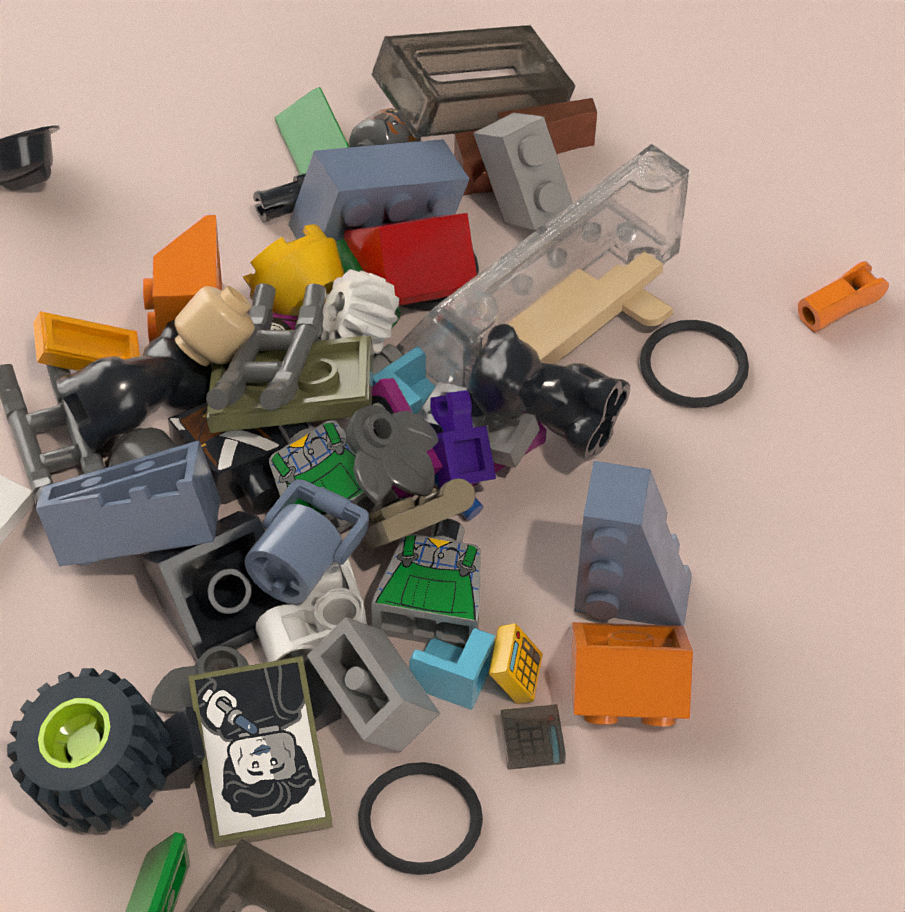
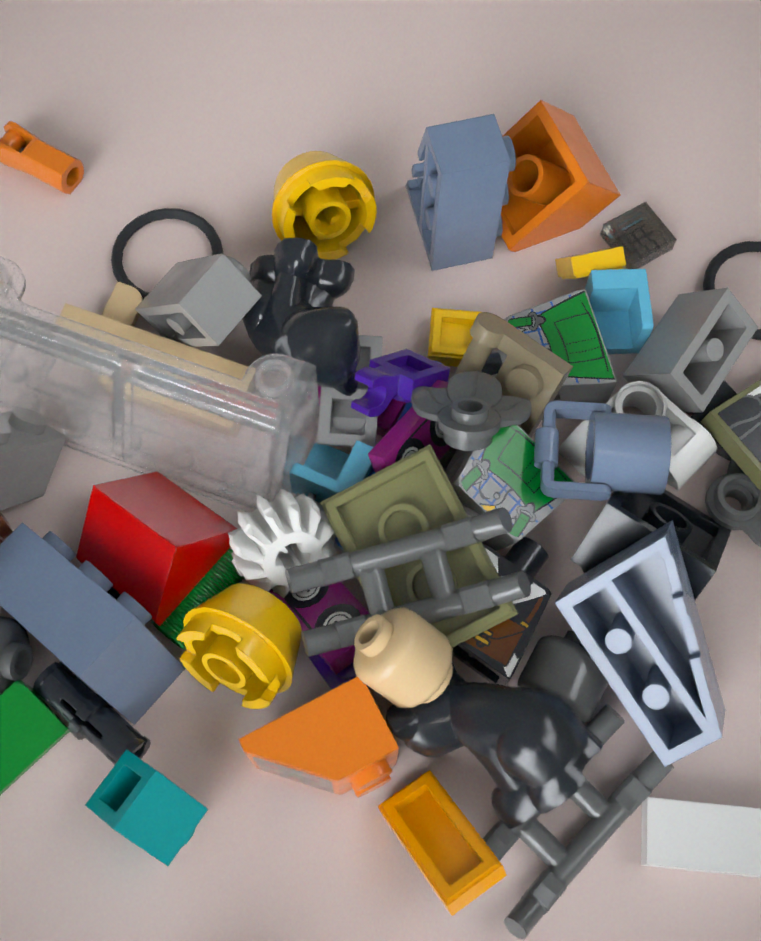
camera: 115 degrees left, 15 degrees up
(216, 187) = (146, 808): none -> teal brick
(500, 538) = (450, 335): none -> yellow tile
(607, 334) = (200, 300): none -> light grey brick
(682, 458) = (323, 202): none -> yellow cone

